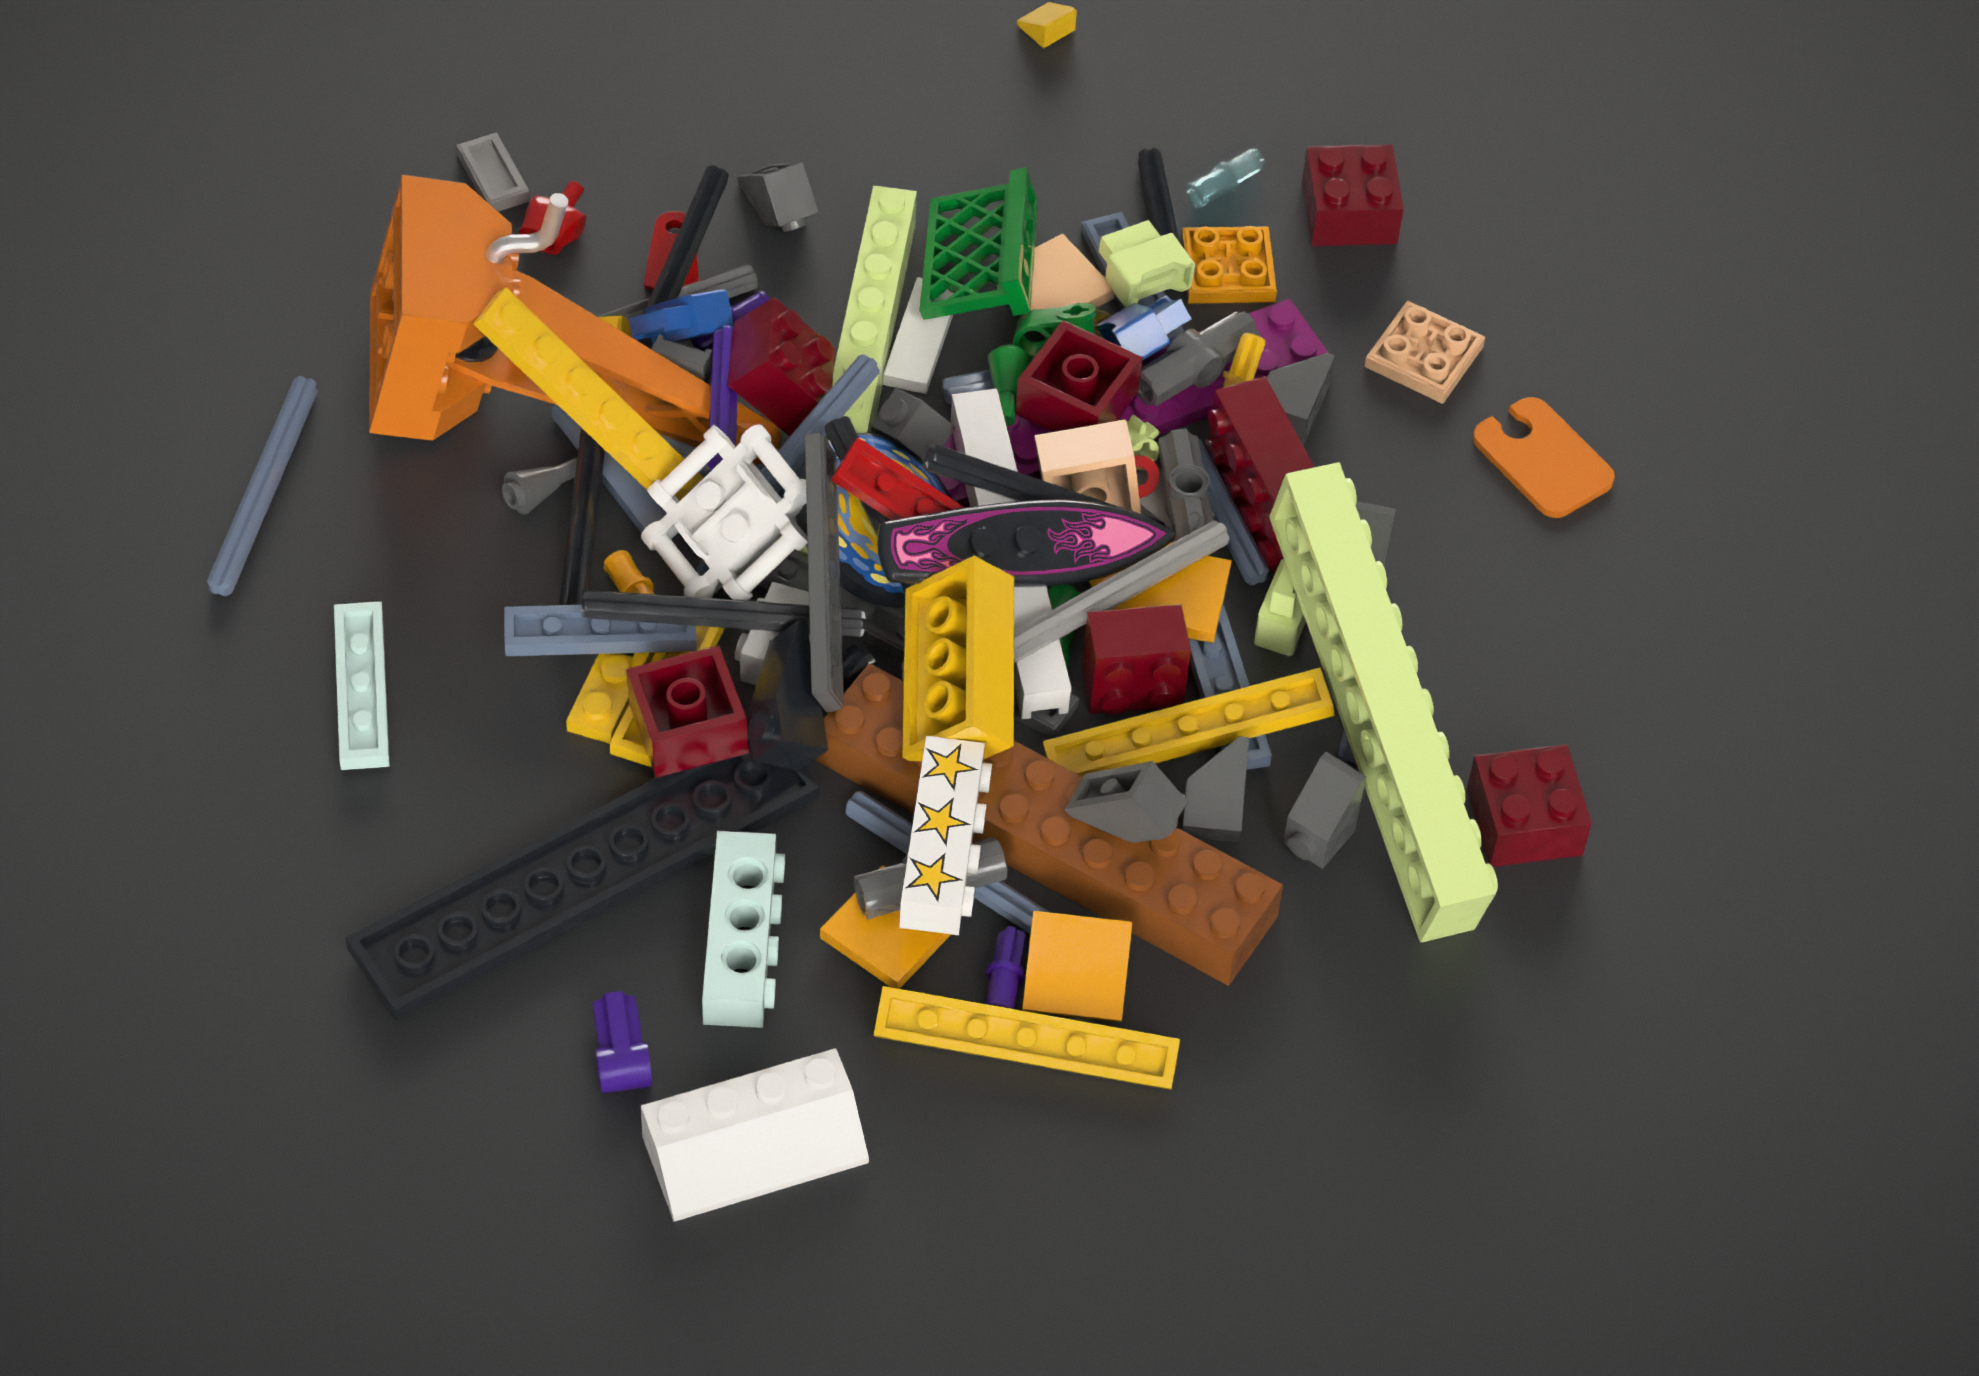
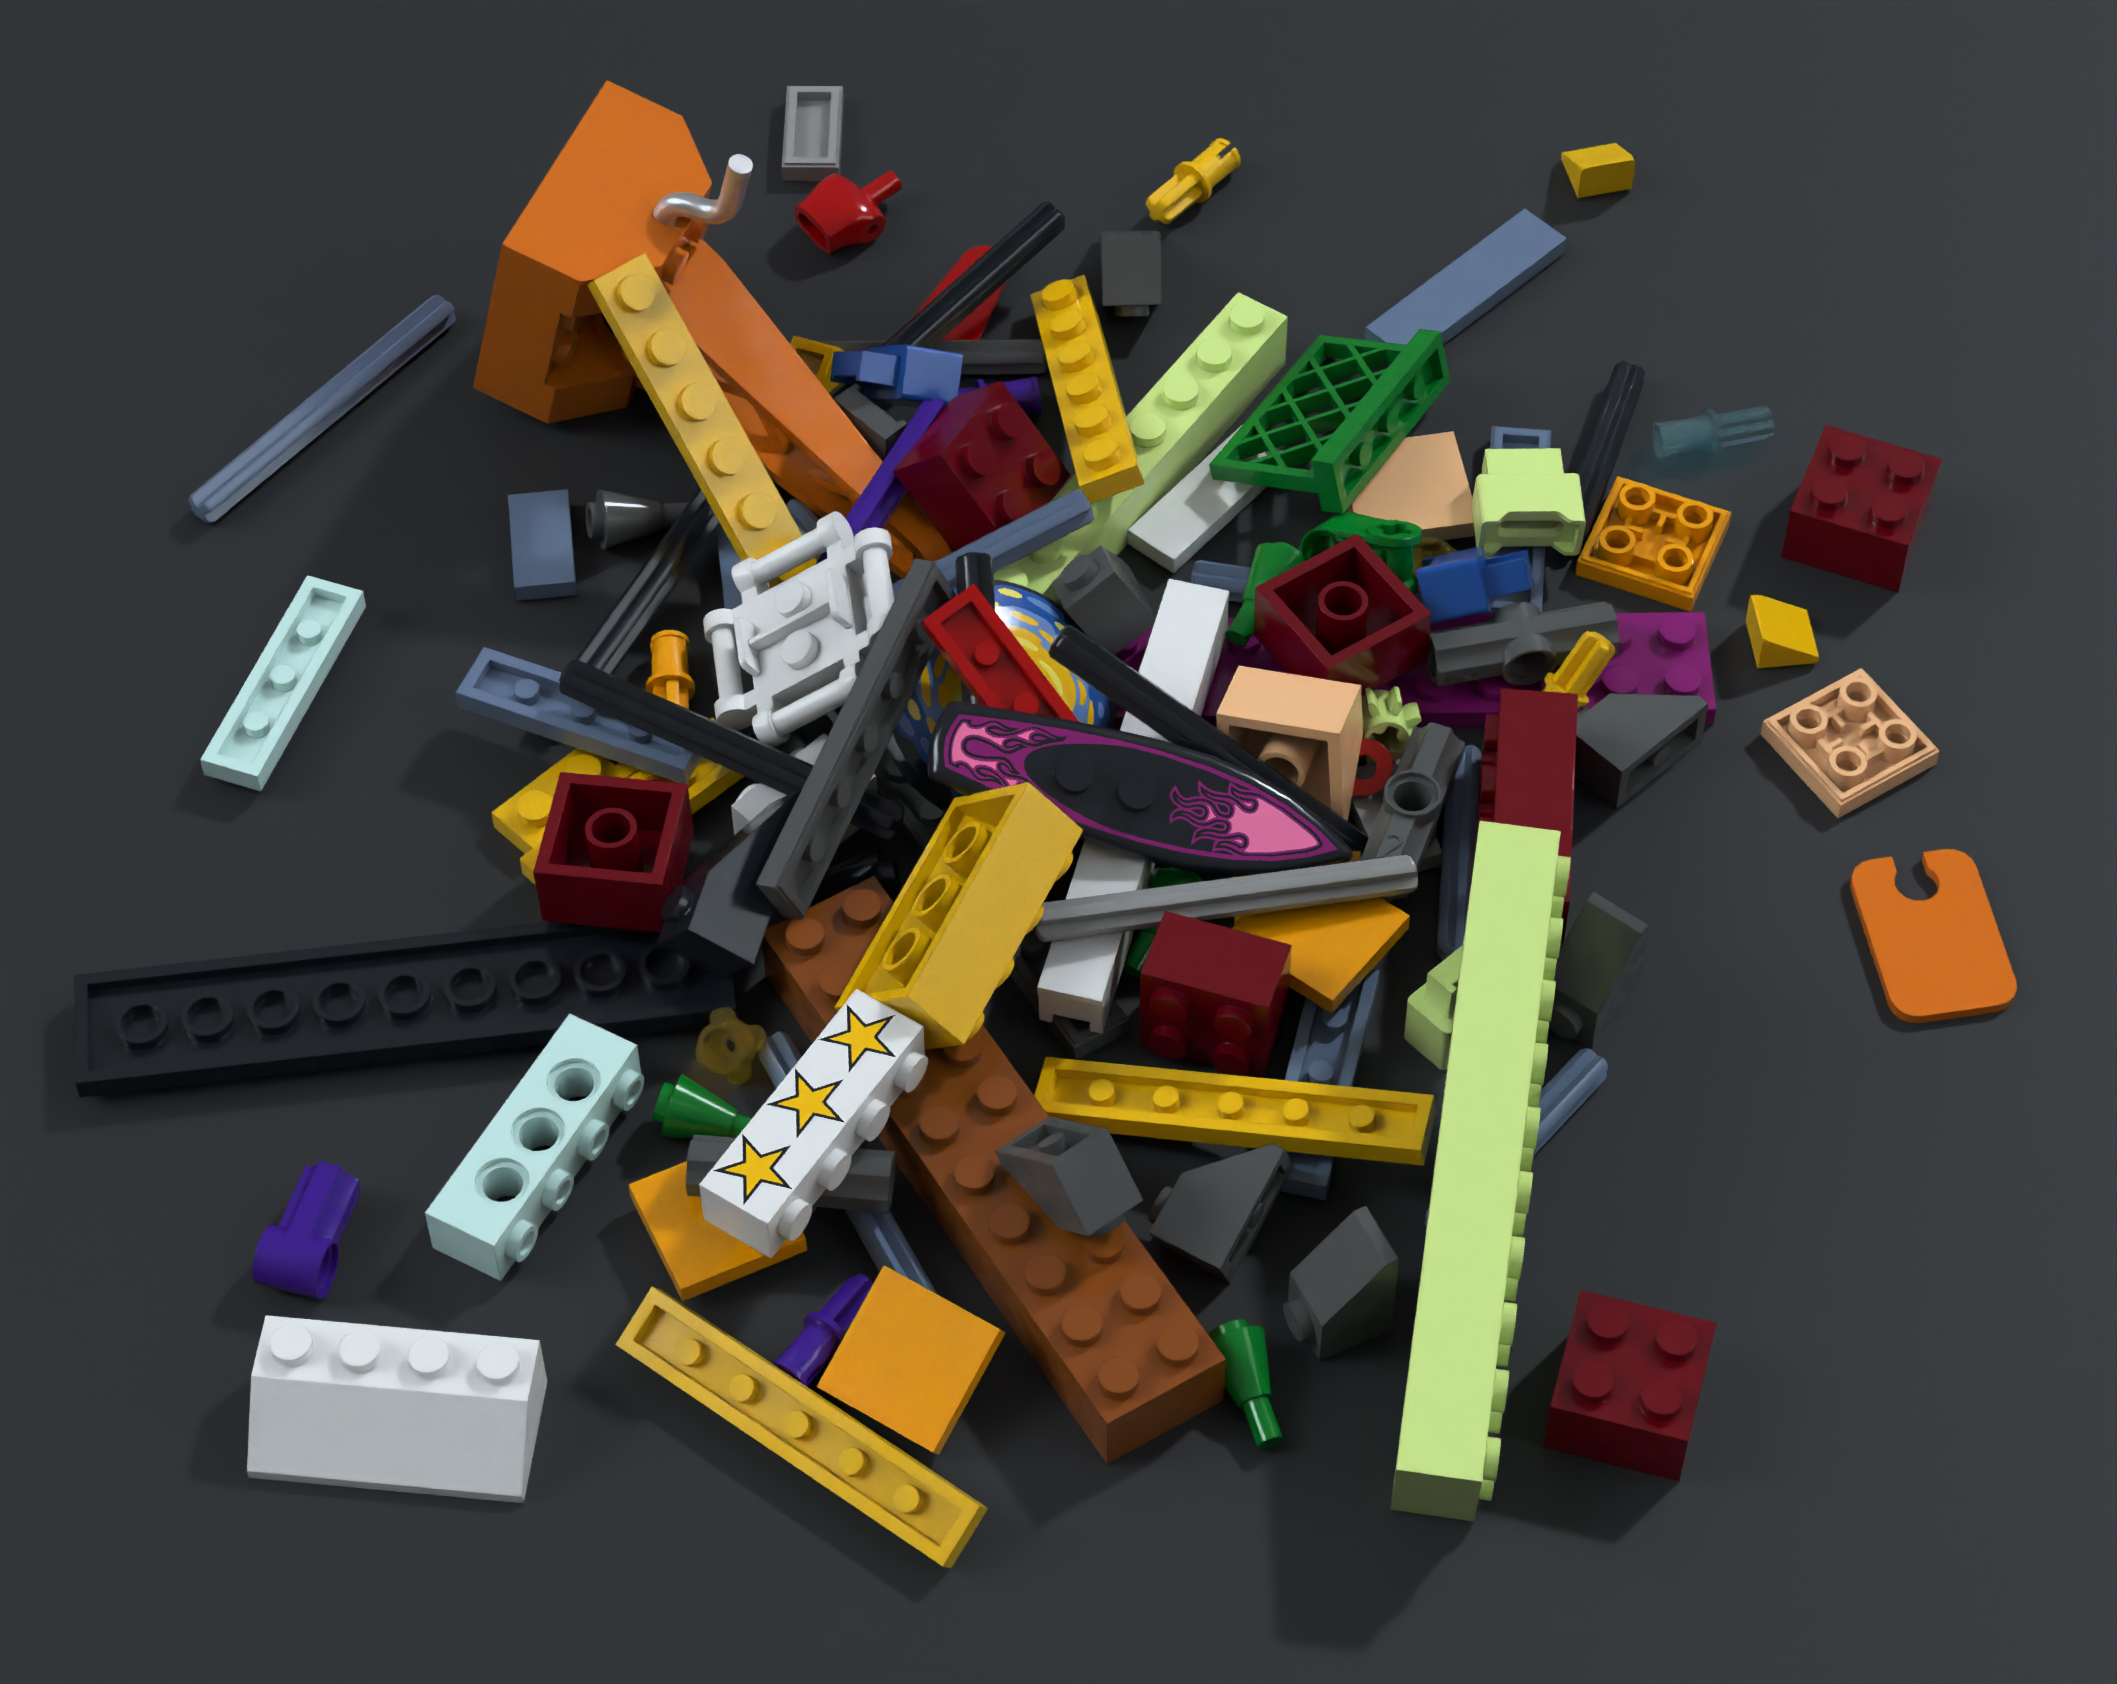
camera: 30 degrees right, 0 degrees up
(482, 526) = (542, 545): none -> sand blue tile
(783, 120) = (1192, 182): none -> yellow axle
(810, 285) = (1086, 389): none -> yellow plate
(818, 823) = (713, 1051): none -> clear yellow plate
(831, 866) = (693, 1110): none -> green cone
(1010, 130) = (1473, 281): none -> sand blue tile
(1294, 897) = (1248, 1377): none -> green cone
(1342, 296) = (1779, 633): none -> yellow slope

